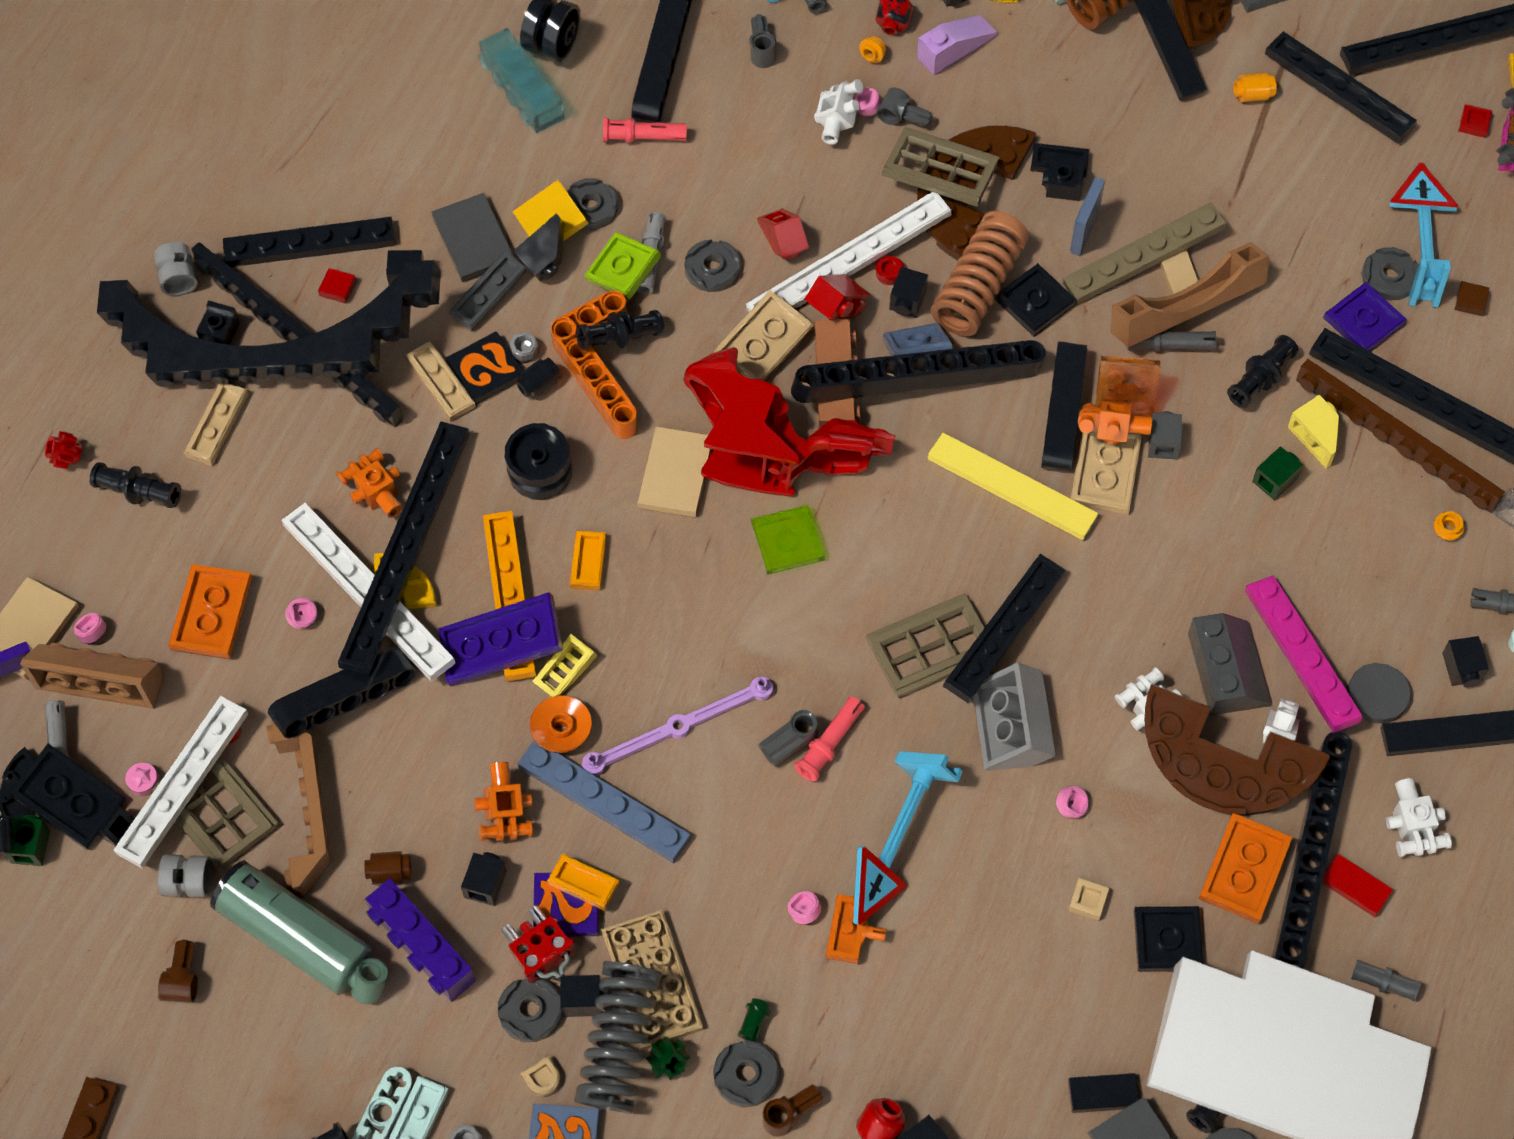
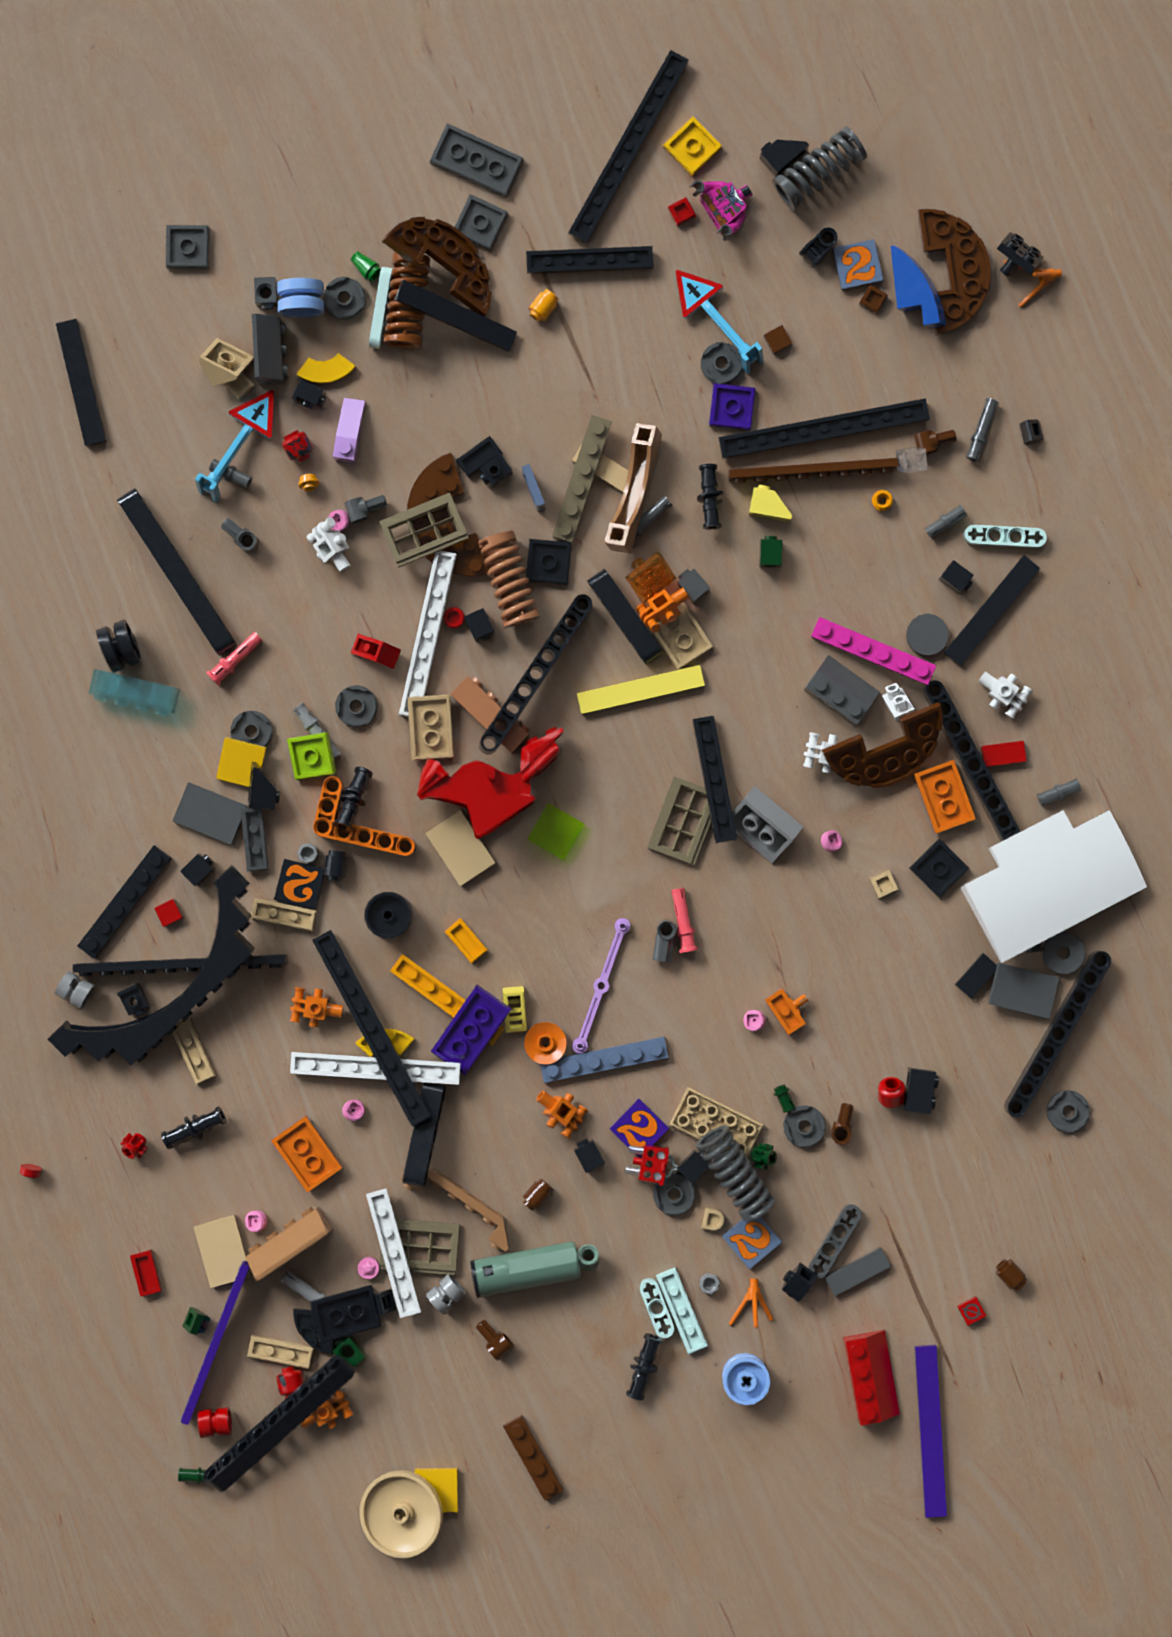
camera: 45 degrees left, 25 degrees up
(420, 939) = (590, 1215): dark purple brick -> none
(583, 882) = (638, 1111): light orange tile -> none
(837, 297) = (449, 669): red brick -> none
(874, 879) = (779, 975): medium azure piece -> none
(917, 340) = (515, 654): sand blue tile -> none

